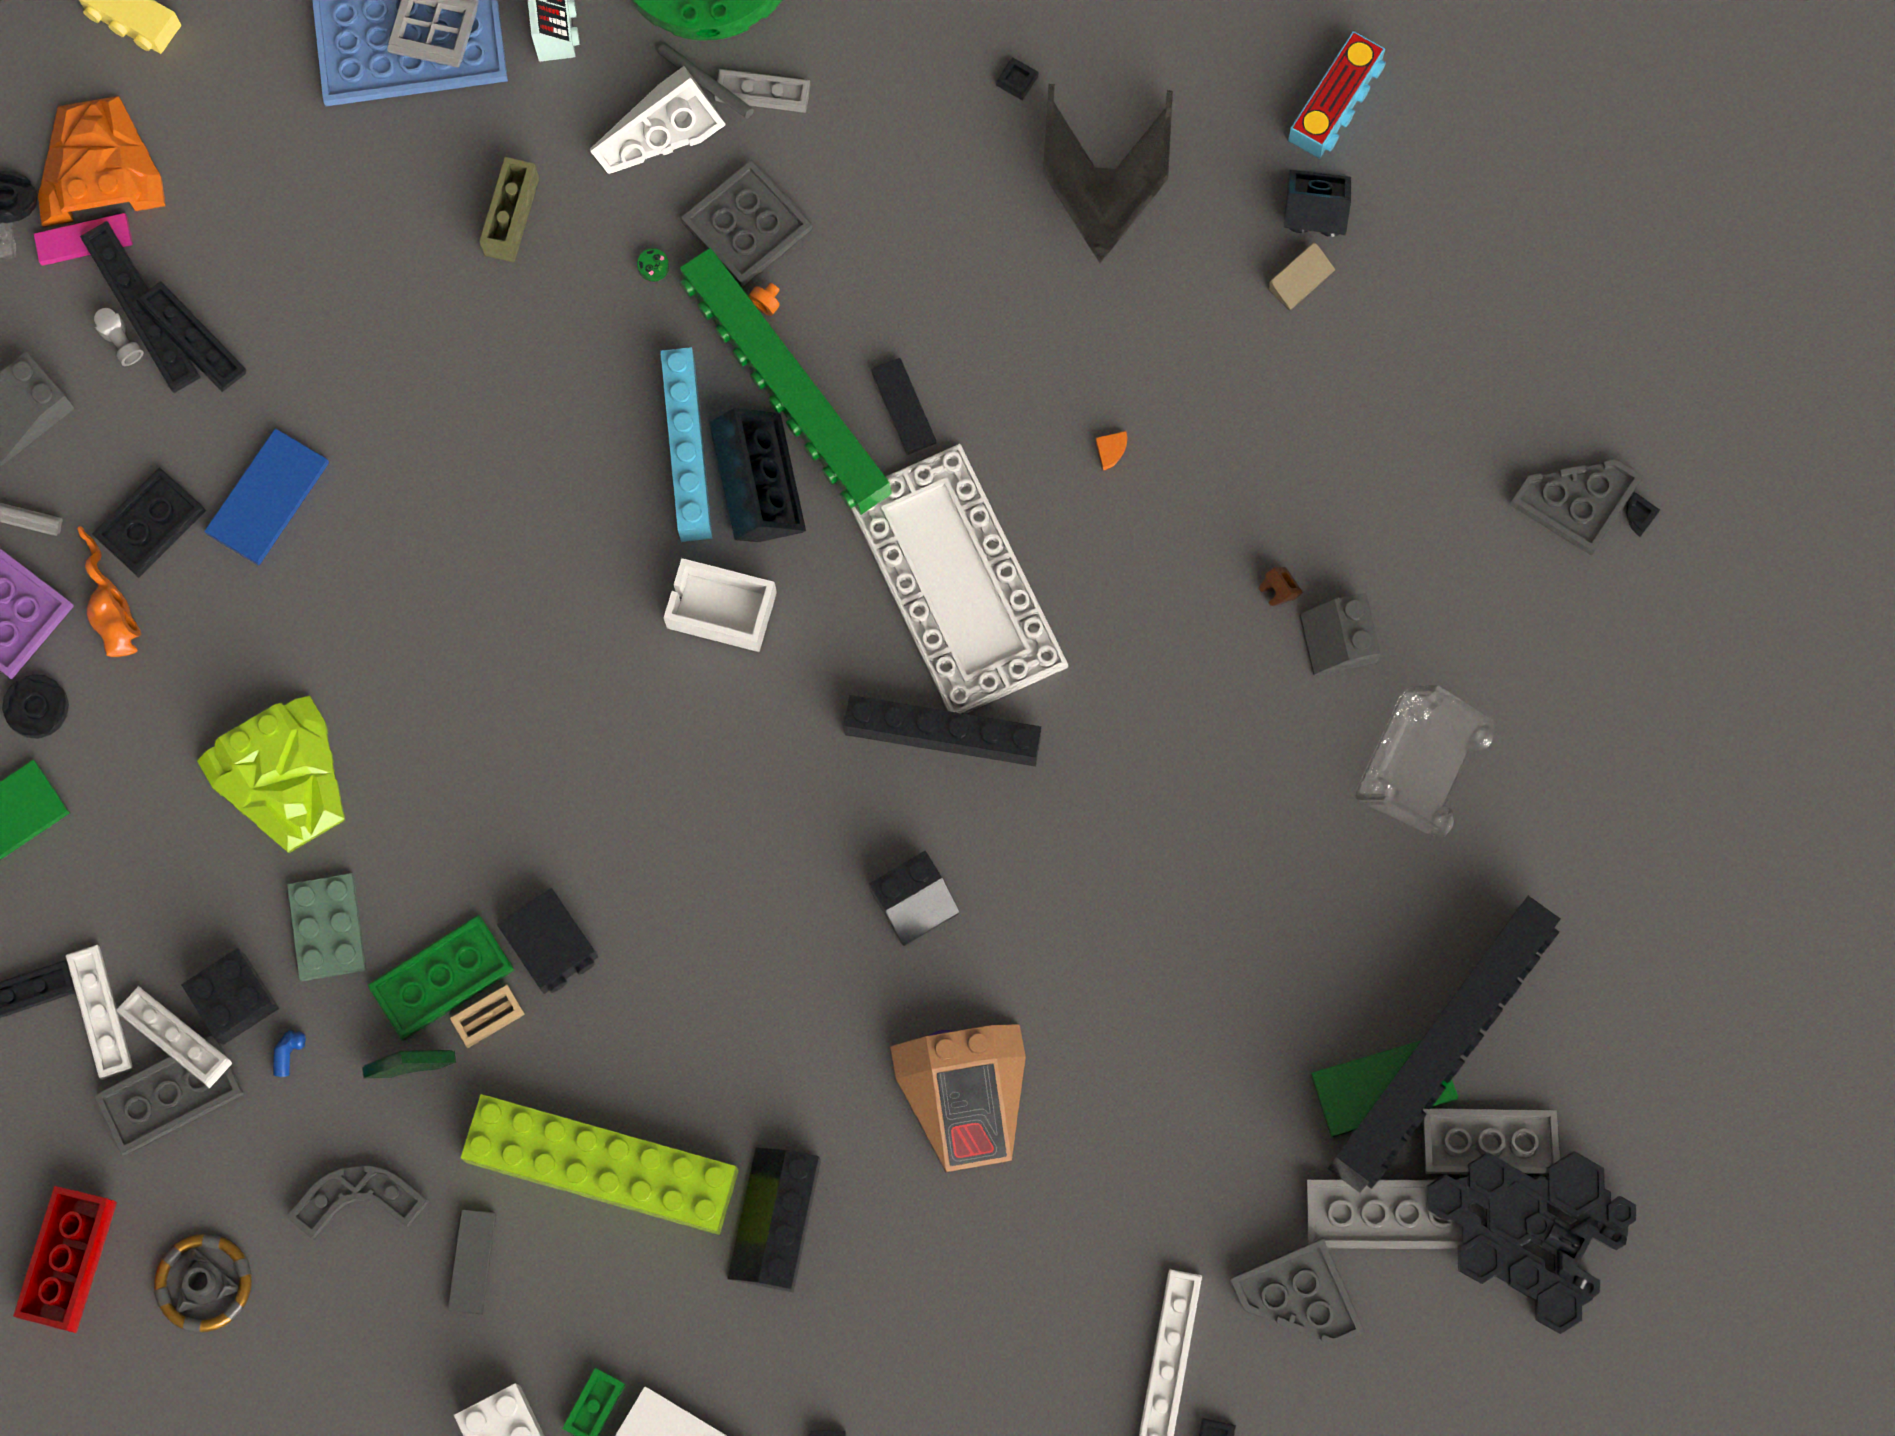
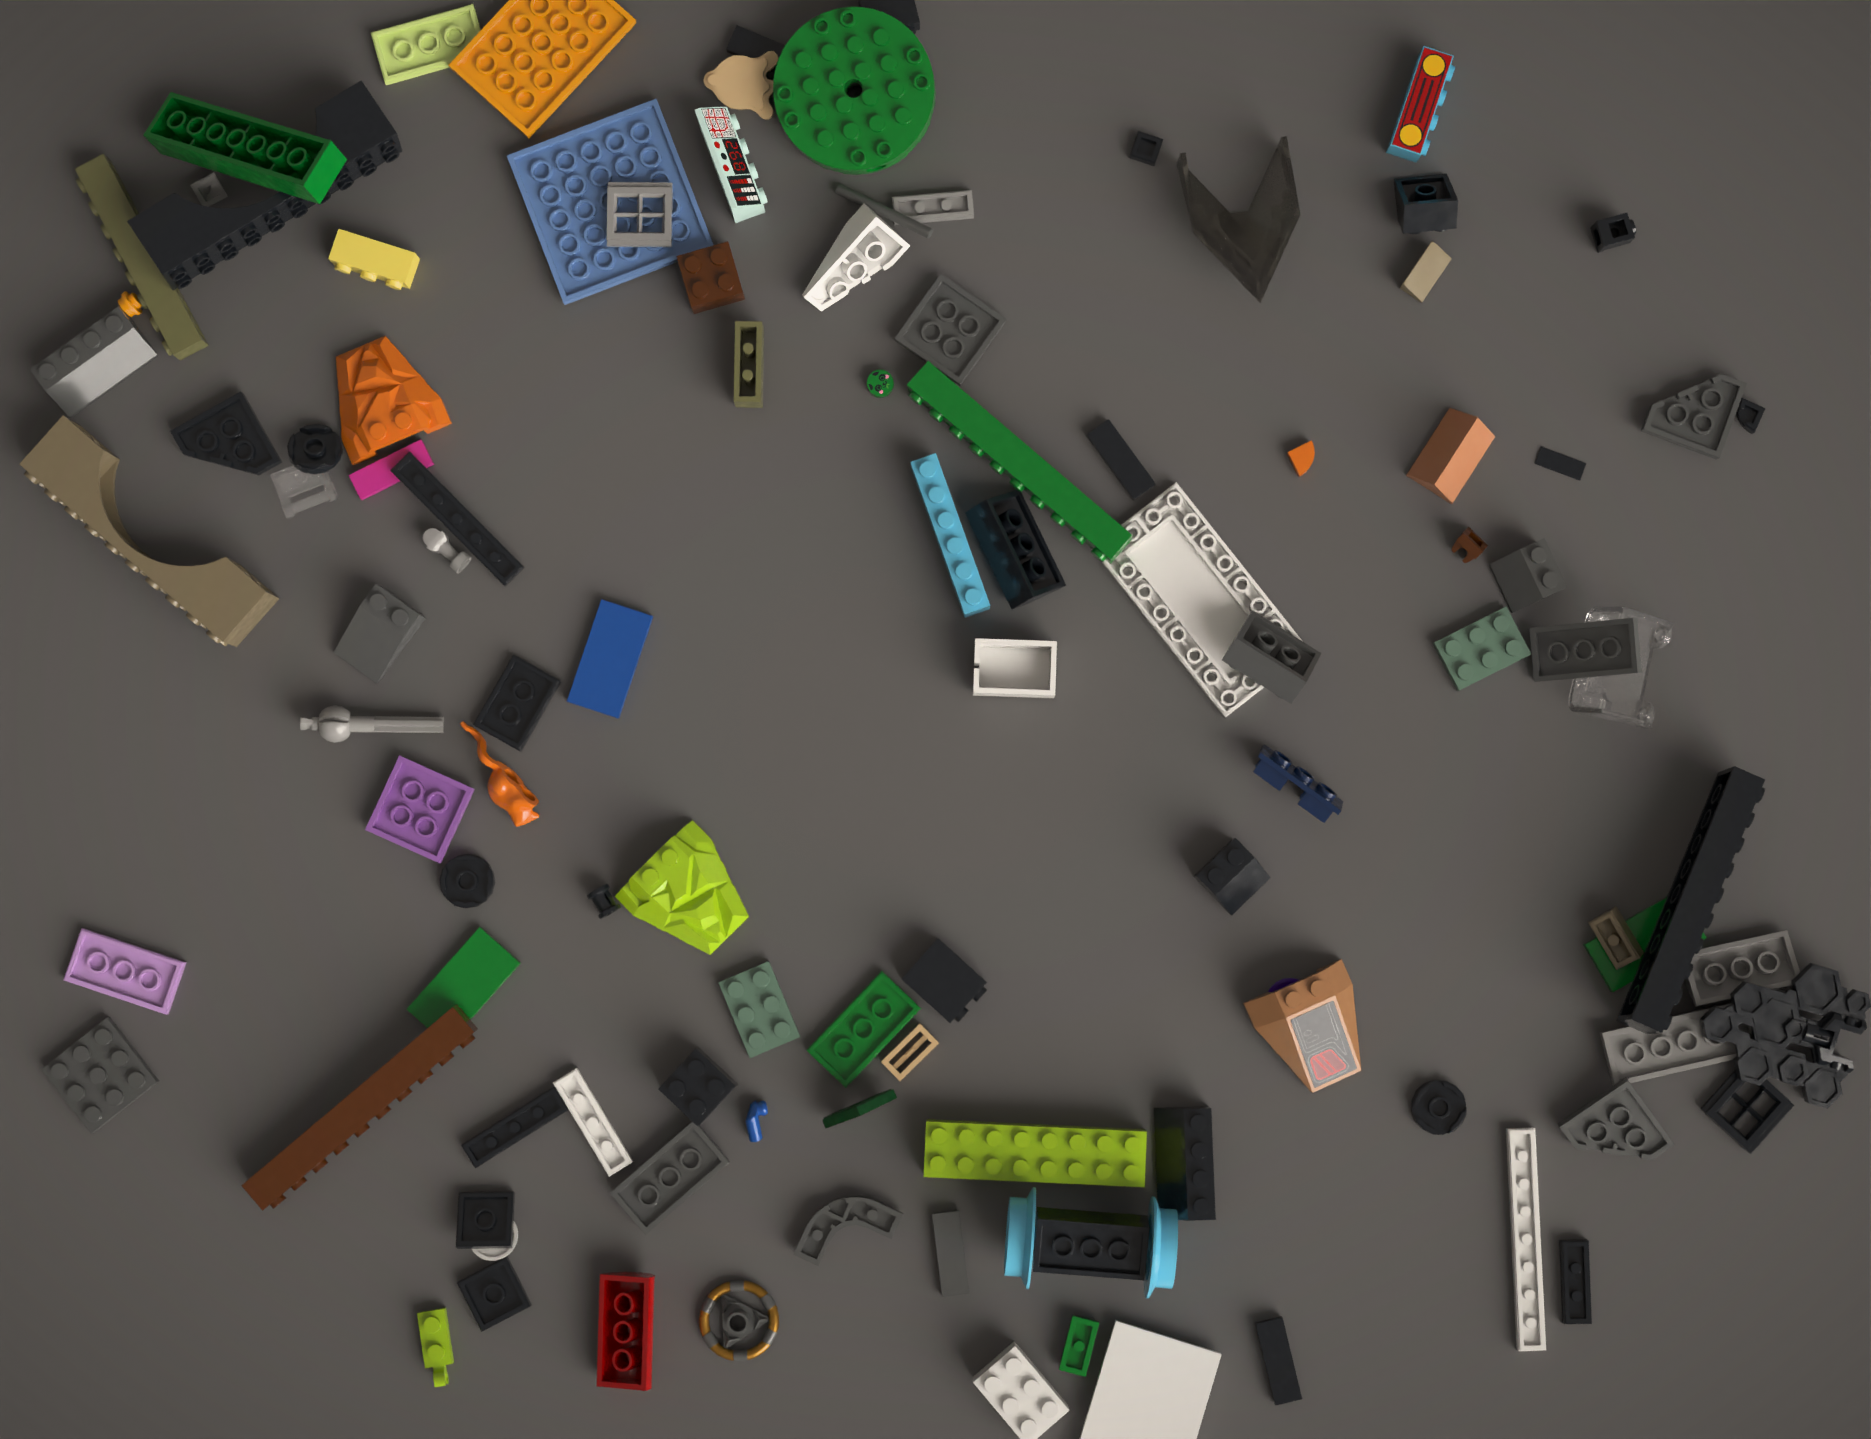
camera: 15 degrees left, 10 degrees up
(174, 1037) = (661, 1130): white tile -> none
(182, 762) = (603, 901): none -> black bush
(191, 336) = (508, 535): black tile -> none
(493, 109) = (710, 277): none -> reddish brown brick
(632, 1277) = (1091, 1243): none -> black brick
(765, 299) = (982, 393): orange tile -> none
(942, 730) = (1223, 731): black brick -> none
(995, 789) = (1316, 798): none -> dark blue brick
(1018, 656) = (1271, 657): none -> dark grey slope
(1093, 1225) = (1438, 1107): none -> black tile
(1268, 707) = (1481, 648): none -> sand green plate
(1285, 483) = (1451, 454): none -> nougat slope
(1349, 1072) = (1616, 938): none -> dark tan slope
(1384, 727) = (1585, 650): none -> dark grey plate
(1409, 521) = (1560, 463): none -> black sticker
(1482, 1335) = (1765, 1124): none -> black piece
(1526, 268) = (1620, 224): none -> black brick

